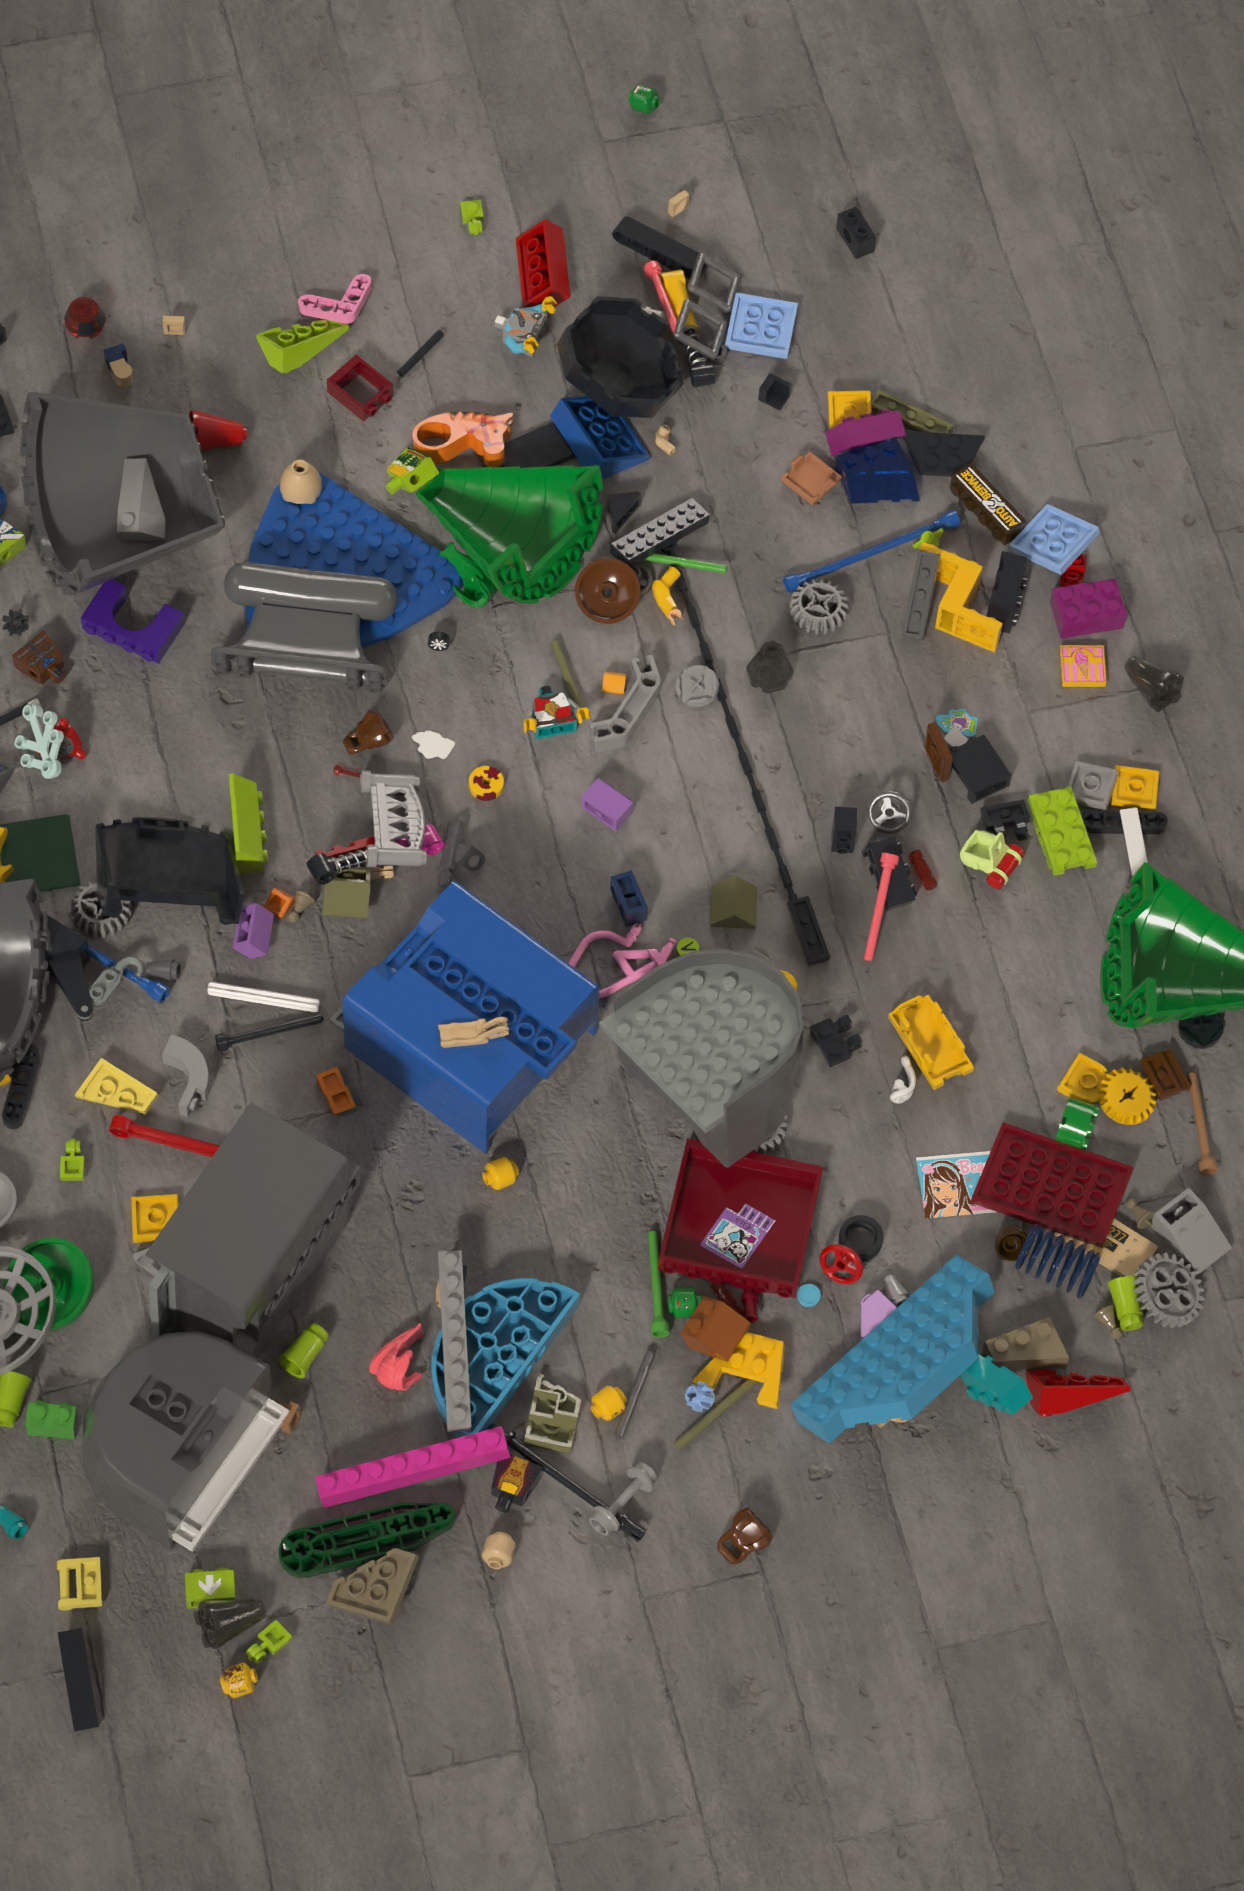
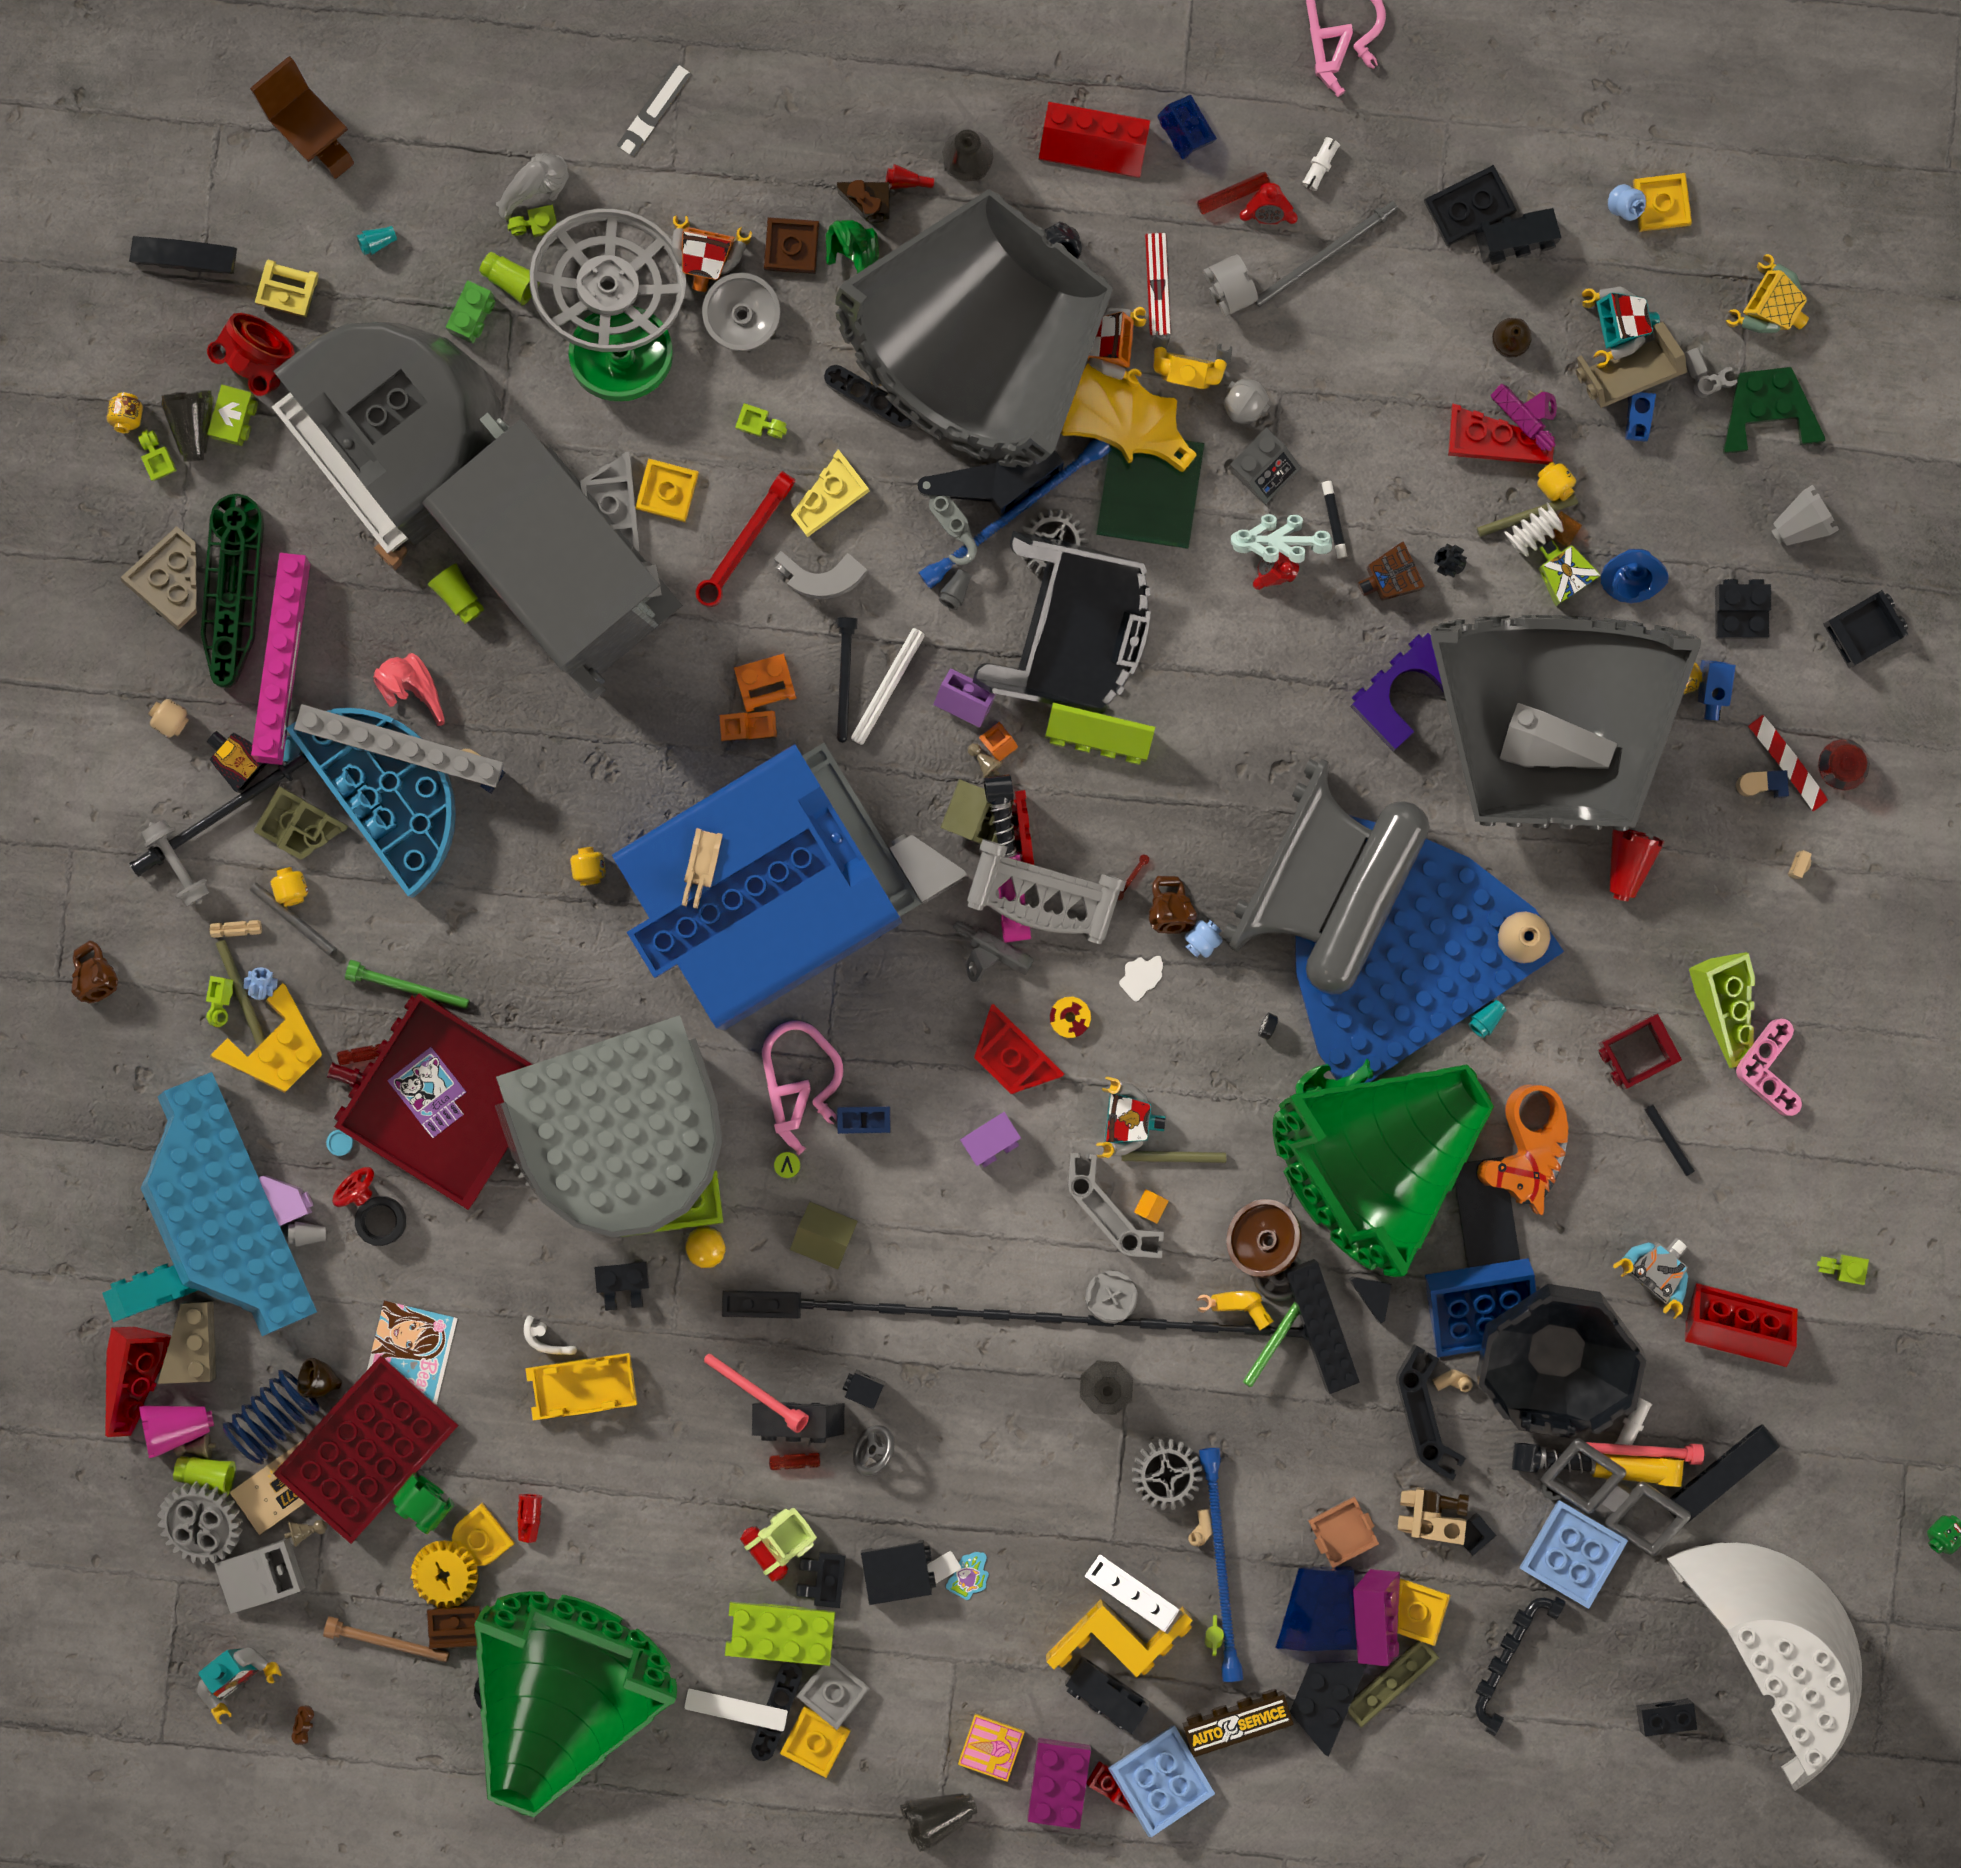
camera: 115 degrees right, 25 degrees up
(94, 358) = (1788, 761): none -> sticker
(147, 1585) = (252, 351): none -> red piece
(288, 1095) = (763, 674): none -> orange plate
(375, 496) = (1486, 1020): none -> teal cone
(386, 704) = (1203, 938): none -> light blue piece
(404, 910) = (925, 868): none -> light grey slope
(410, 471) = (1500, 1068): lime torso -> none
(533, 813) = (1012, 1055): none -> red wing
(660, 1436) = (235, 928): none -> tan axle
(678, 203) = (1779, 1520): tan tile -> none
(683, 1302) = (370, 1006): green head -> none
(696, 453) = (1420, 1413): none -> black piece
(715, 1329) = (325, 1026): dark orange slope -> none
(720, 1427) = (218, 994): none -> lime plate
(774, 426) = (1427, 1517): none -> tan hips
(788, 108) = (1790, 1640): none -> white cone
(850, 571) = (1203, 1530): none -> tan arm
(866, 349) = (1499, 1665): none -> black bar
(938, 752) = (926, 1533): reddish brown tile -> none
(1052, 1047) = (529, 1517): none -> red hinge
(1101, 1341) = (173, 1426): none -> dark pink cone

